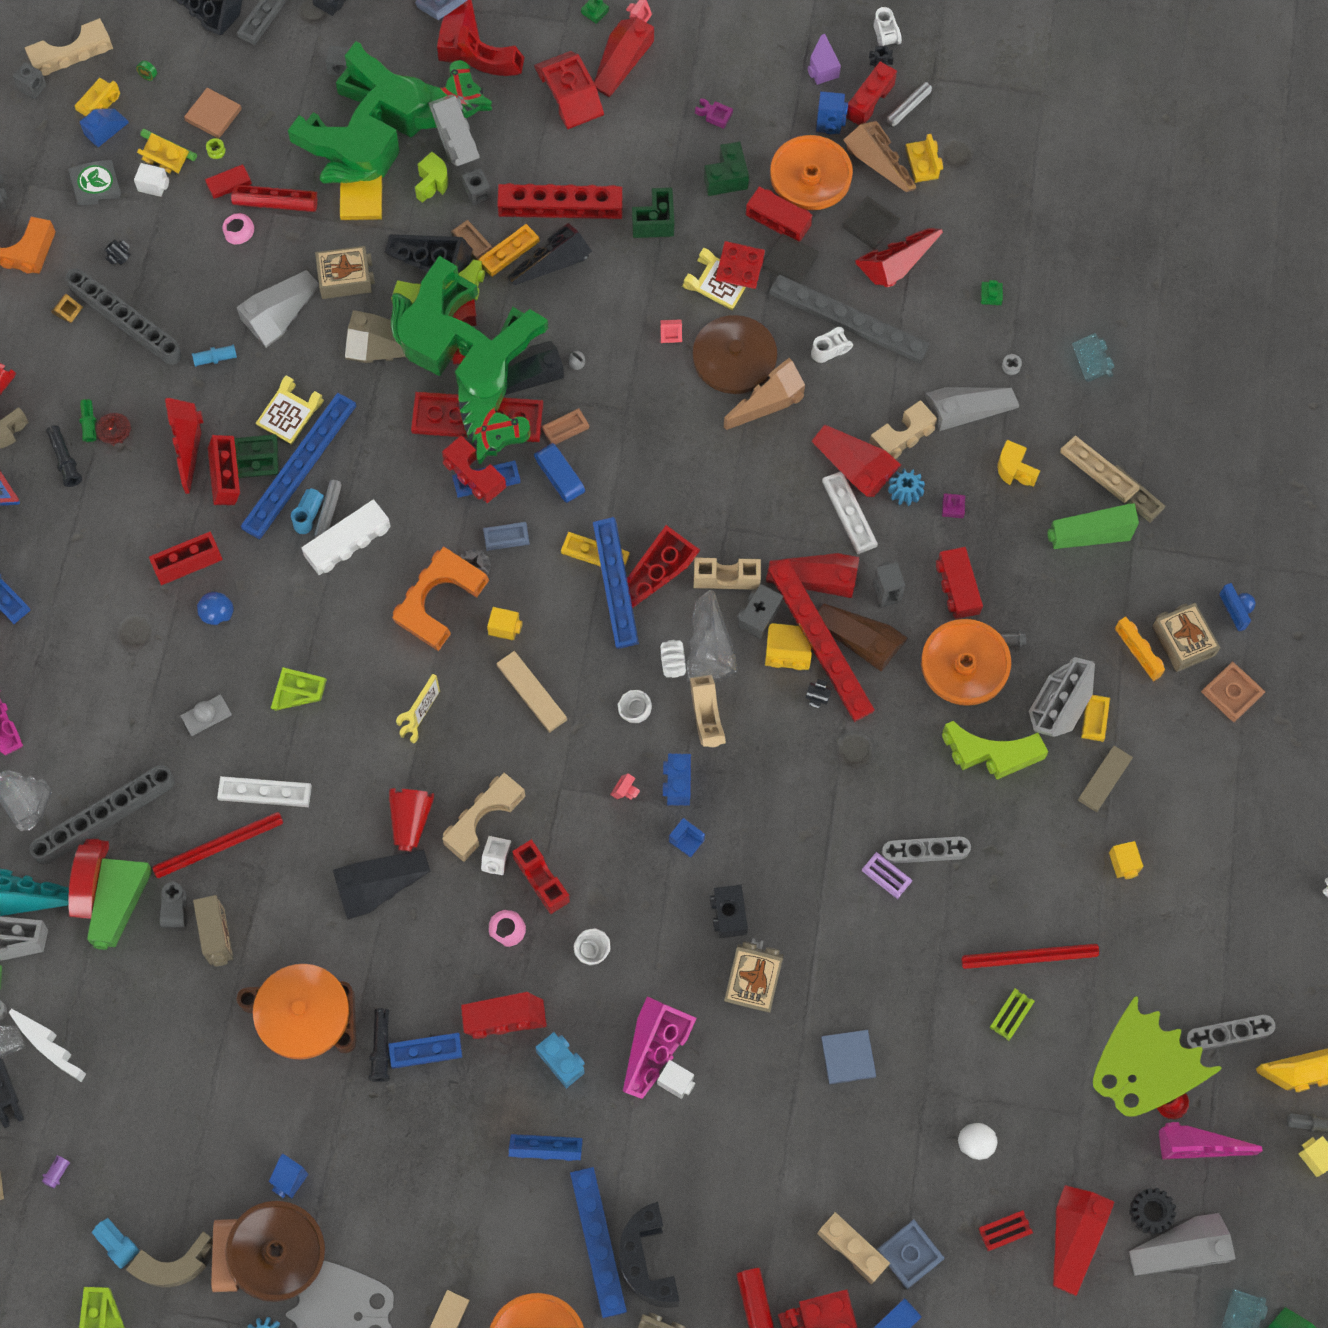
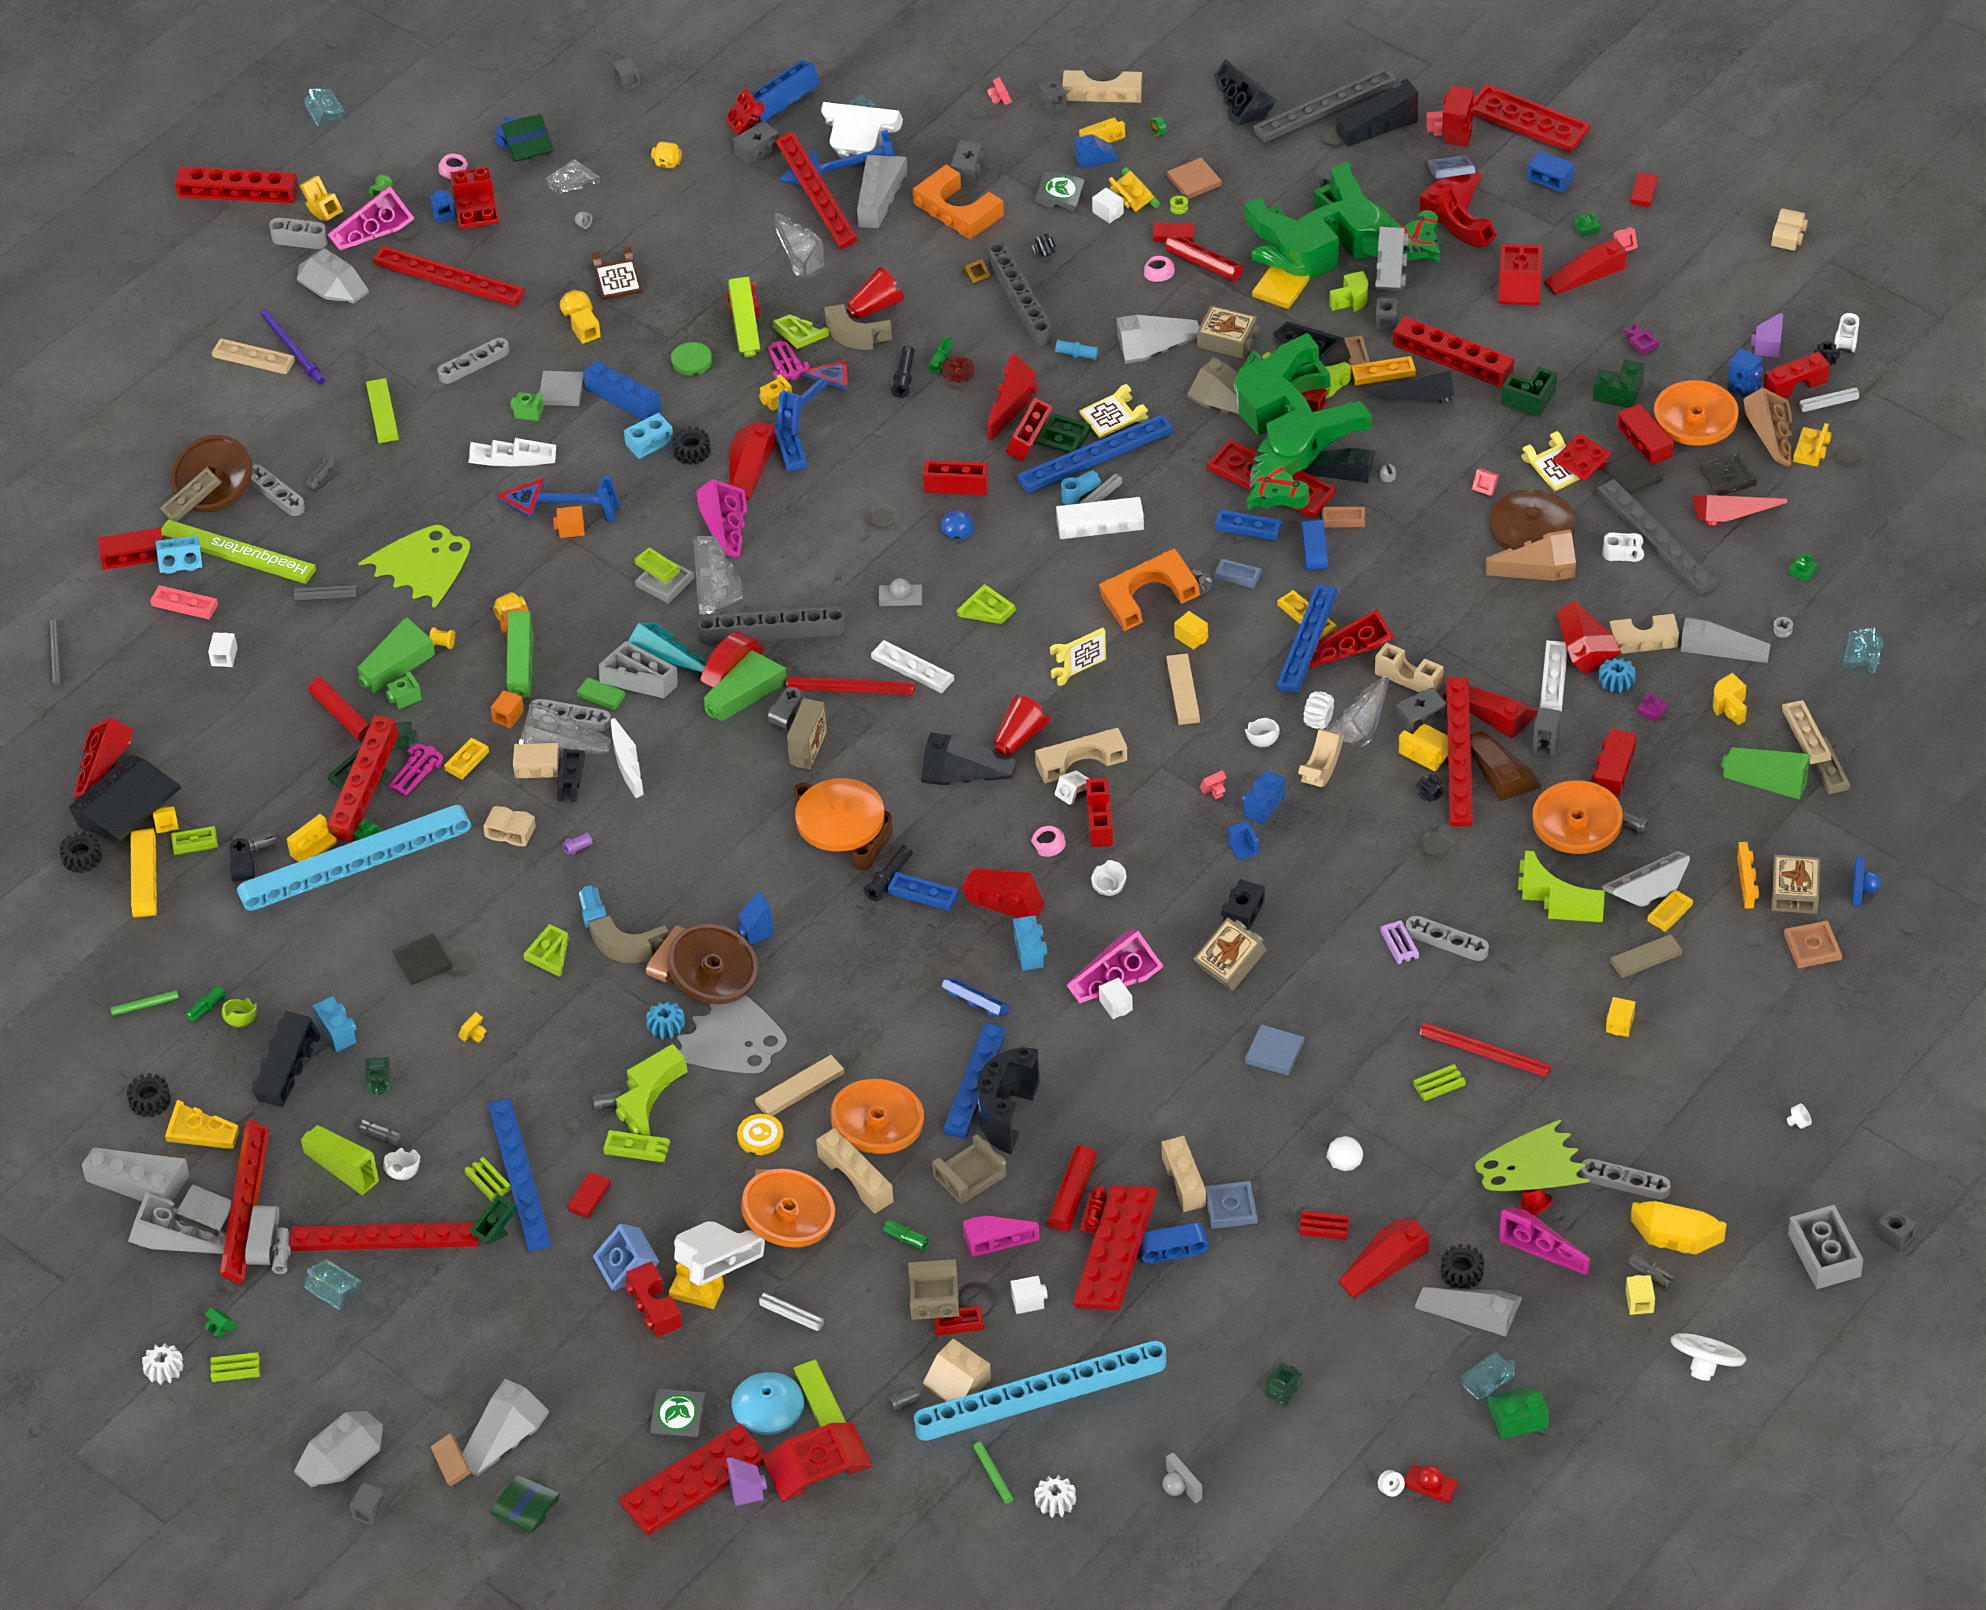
camera: 35 degrees right, 20 degrees down
(484, 483) = (1241, 521): red arch -> none

